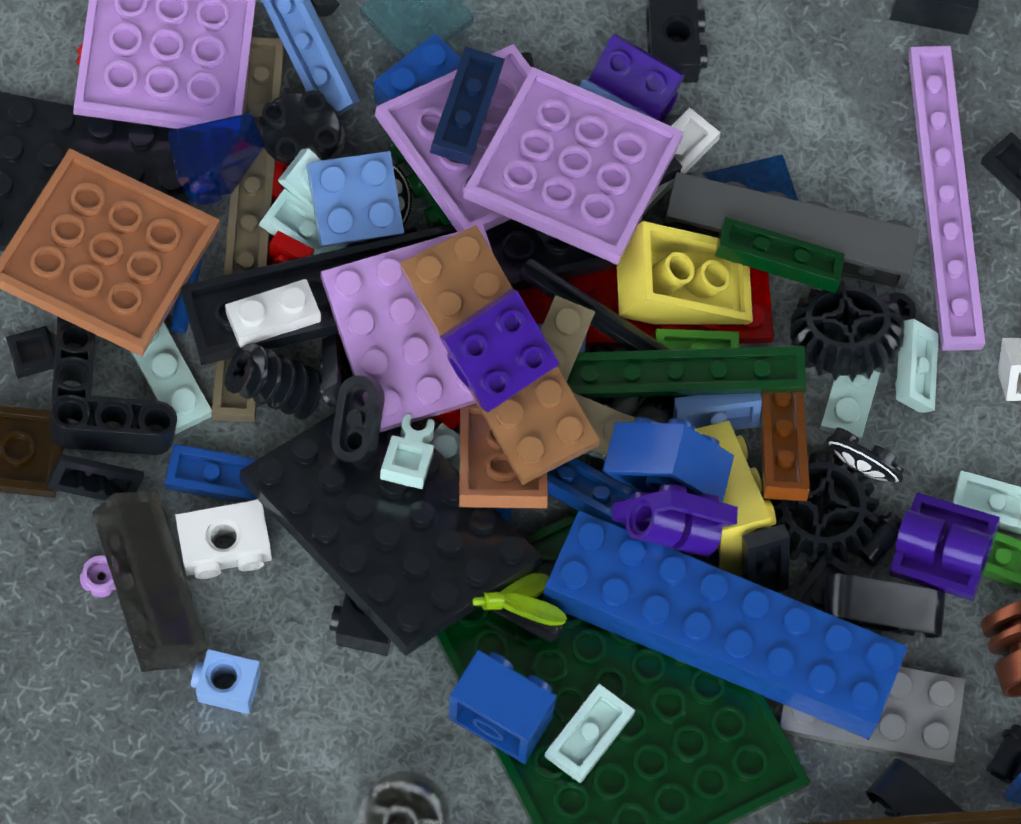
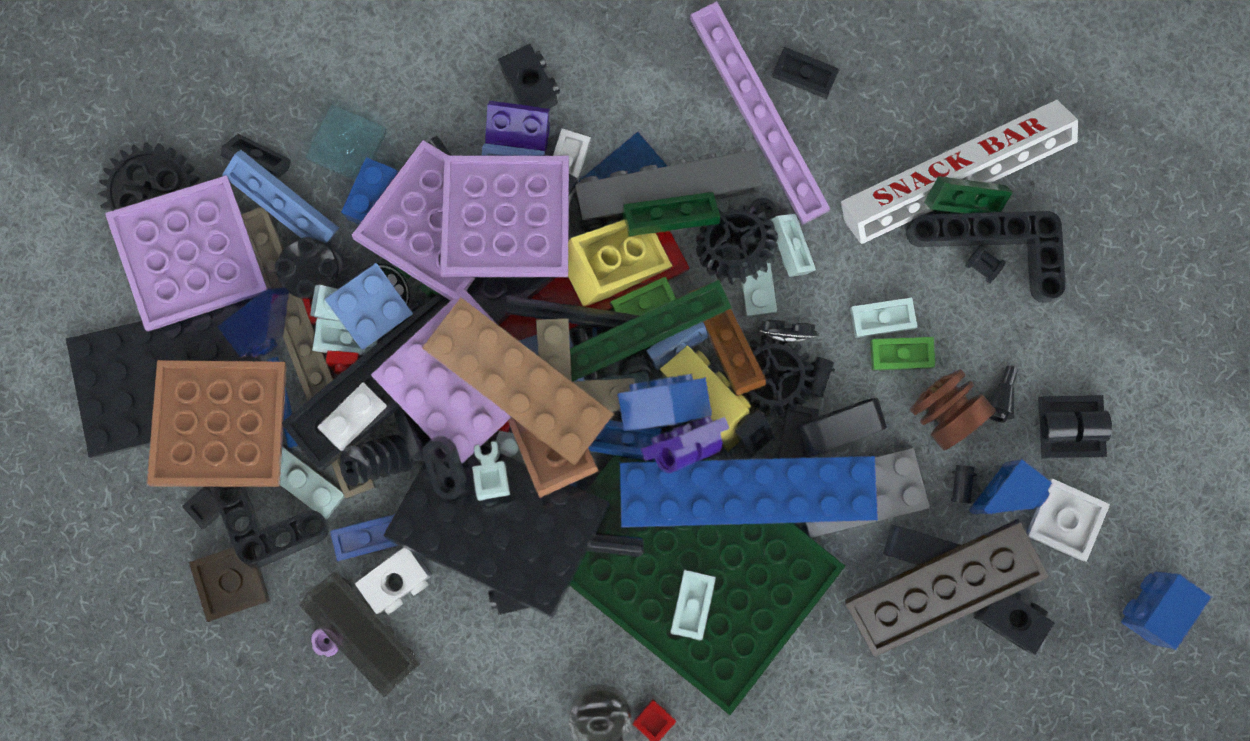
camera: 20 degrees left, 15 degrees up
(92, 478) = (289, 578): black slope -> none
(235, 698) = (455, 671): light blue brick -> none
(467, 106) = (413, 206): dark blue plate -> none
(498, 350) = (519, 389): dark purple plate -> none
(502, 705) = (631, 620): blue brick -> none
(521, 600) = (607, 541): lime piece -> none
(944, 546) = (865, 367): dark purple plate -> none

